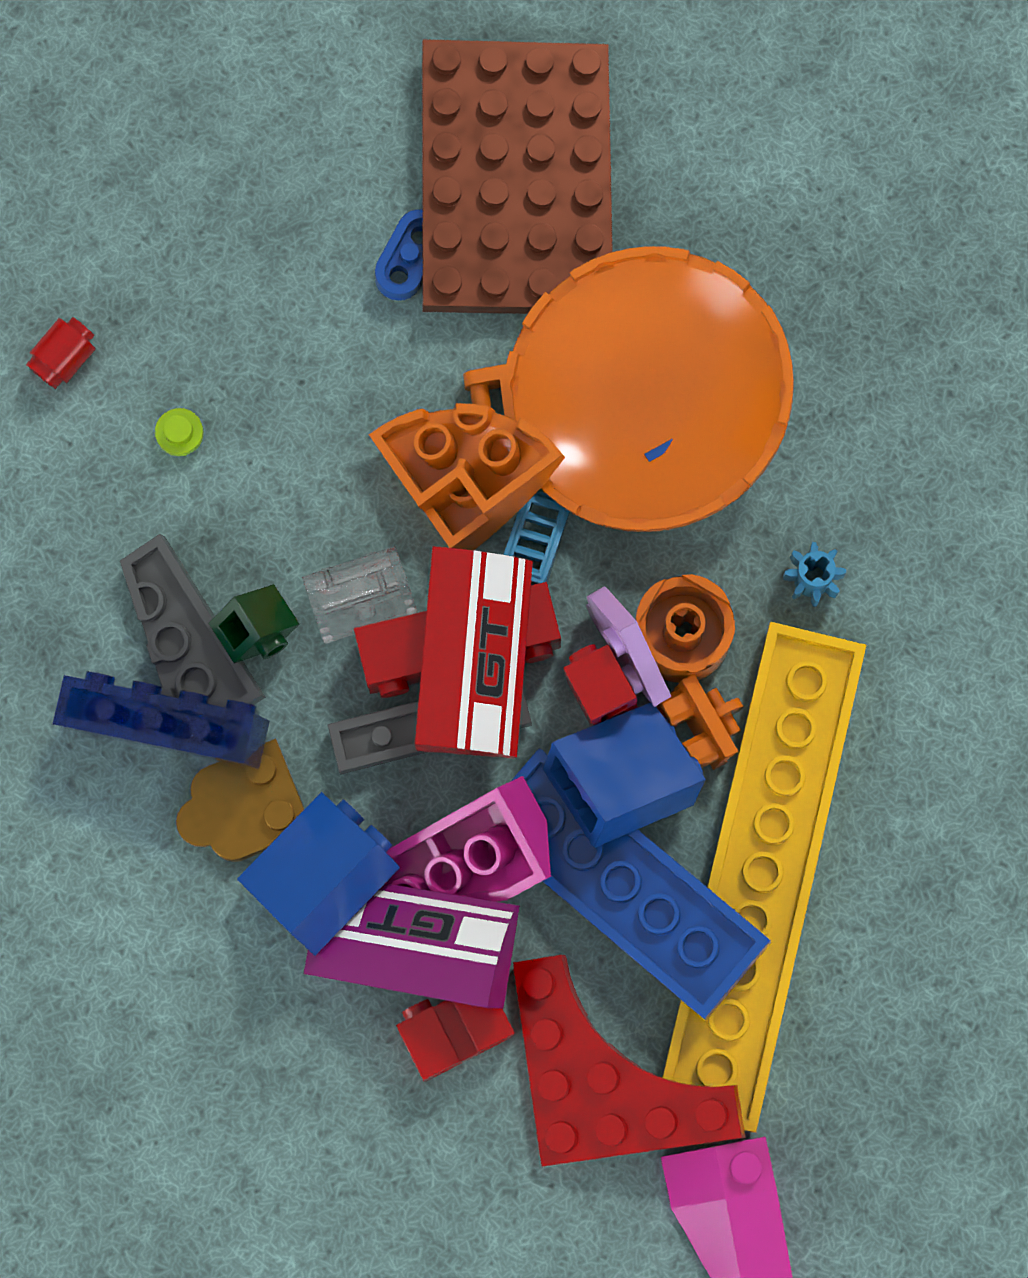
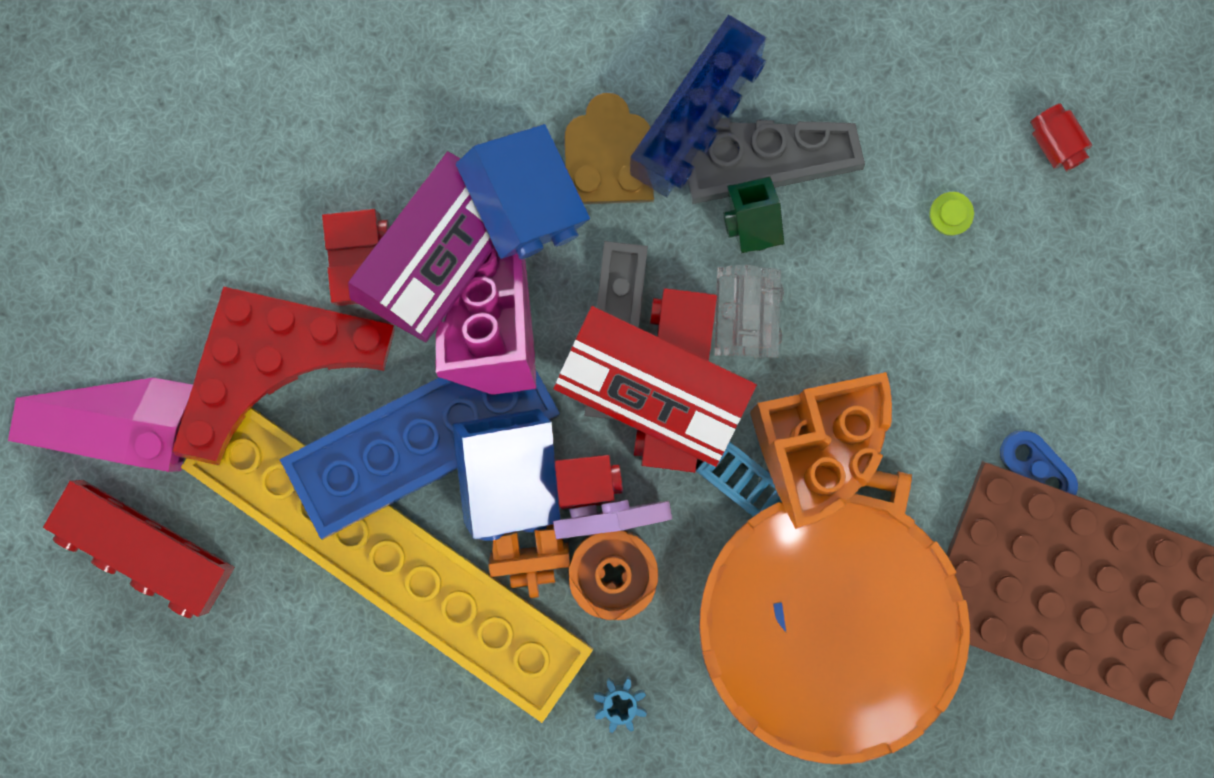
camera: 110 degrees right, 10 degrees up
(861, 1141) = (138, 548): none -> red brick

